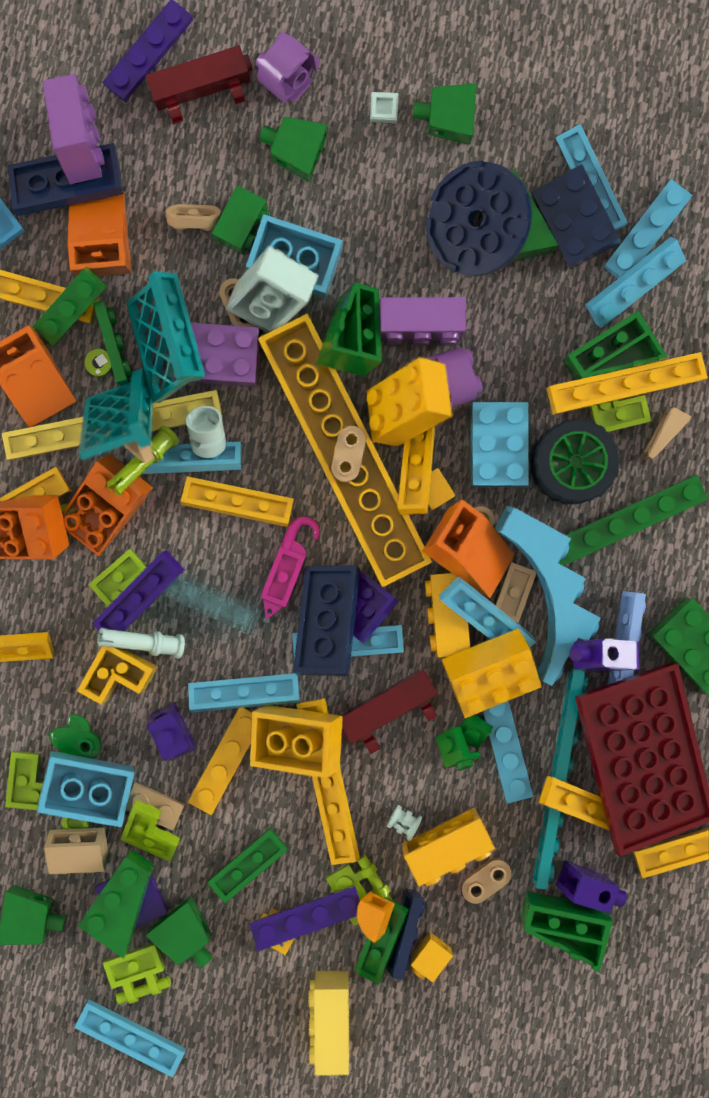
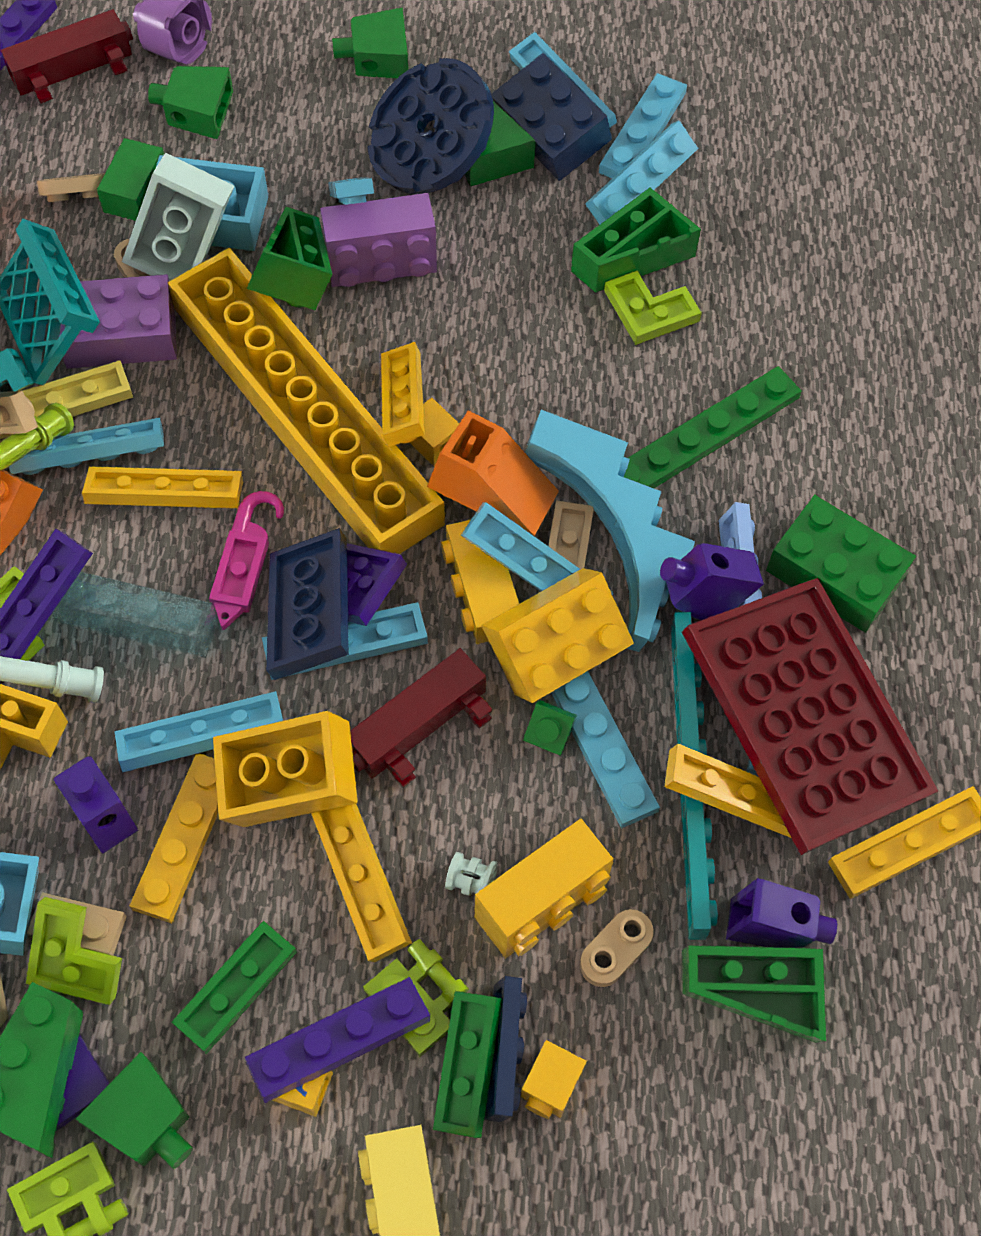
camera: 10 degrees left, 25 degrees down
(206, 431) = (109, 396): light aqua wheel -> none
(348, 453) = (308, 385): tan plate -> none
(374, 915) = (447, 1009): light orange brick -> none
(384, 107) = (297, 55): light aqua tile -> none
(406, 276) = (351, 190): none -> medium azure plate
(409, 402) = (376, 317): yellow brick -> none
(455, 750) = (529, 756): green bracket -> none
(460, 375) = (432, 297): medium lavender brick -> none
(499, 444) = (508, 365): medium azure brick -> none
(575, 461) = (612, 367): wheel -> none
(626, 383) = (656, 271): yellow plate -> none
(667, 428) = (727, 317): tan slope -> none

